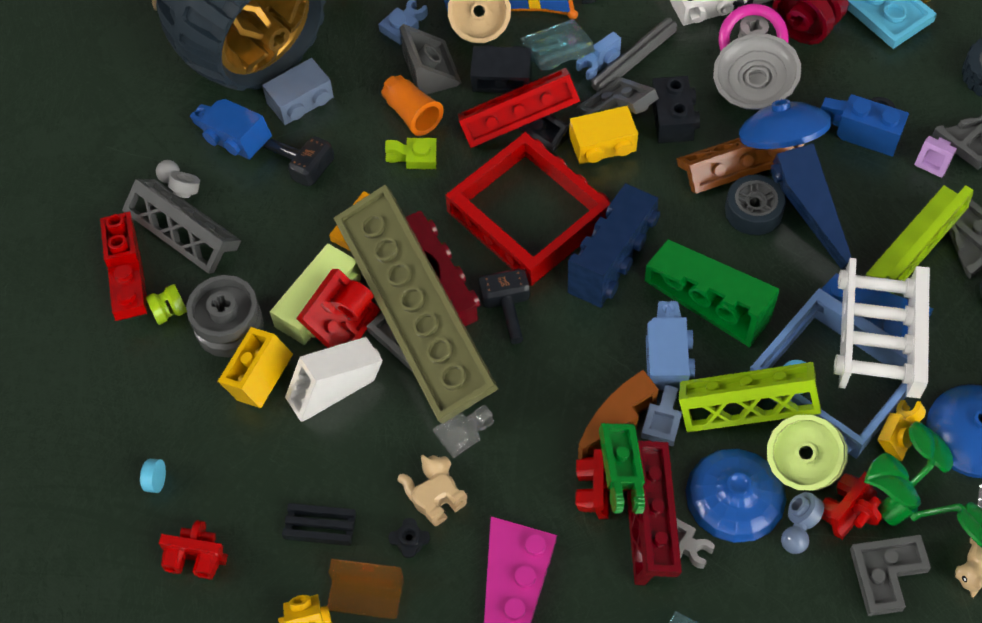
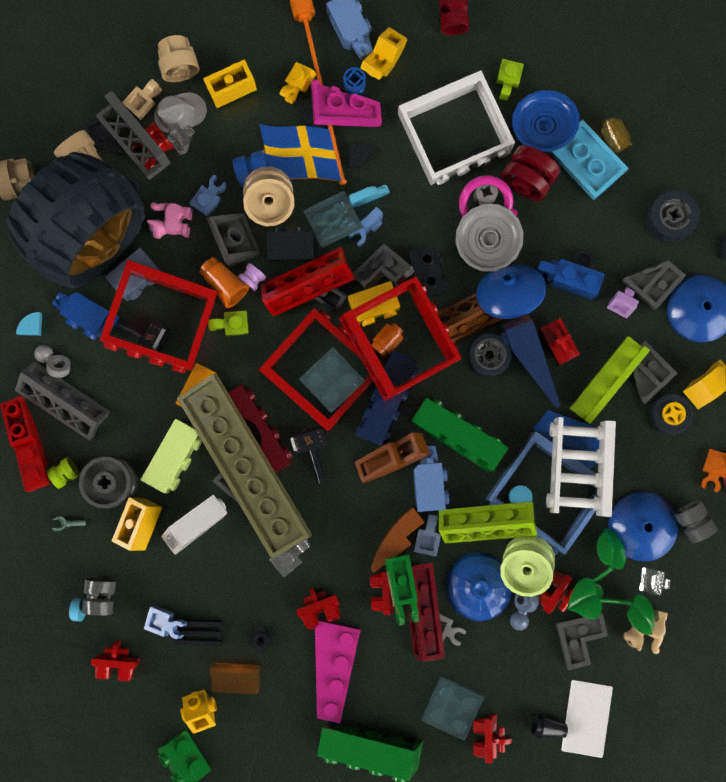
camera: 10 degrees left, 25 degrees up
(154, 367) = (67, 523): none -> sand green hand
(157, 140) = (30, 325): none -> medium azure tile
(186, 458) = (96, 604): none -> dark grey wheel
(270, 500) = (162, 623): none -> plate
(339, 310) = (190, 477): red plate -> none
(341, 90) = (171, 282): none -> red window
(358, 40) = (172, 221): none -> bright pink animal
(436, 491) = (273, 607): tan animal -> none
(451, 99) = (252, 276): none -> lavender wheel
(498, 496) = (327, 605): none -> red hips
(542, 209) = (332, 380): none -> clear light blue plate
(603, 24) = (367, 194): none -> medium azure tile
(613, 208) = (428, 312): none -> red window
(617, 311) = (392, 457): none -> dark orange slope
(618, 174) = (387, 339): none -> orange brick
(634, 54) = (393, 219): dark grey axle -> none
(851, 192) = (559, 341): none -> red hips
(895, 432) = (589, 535): yellow plate -> none

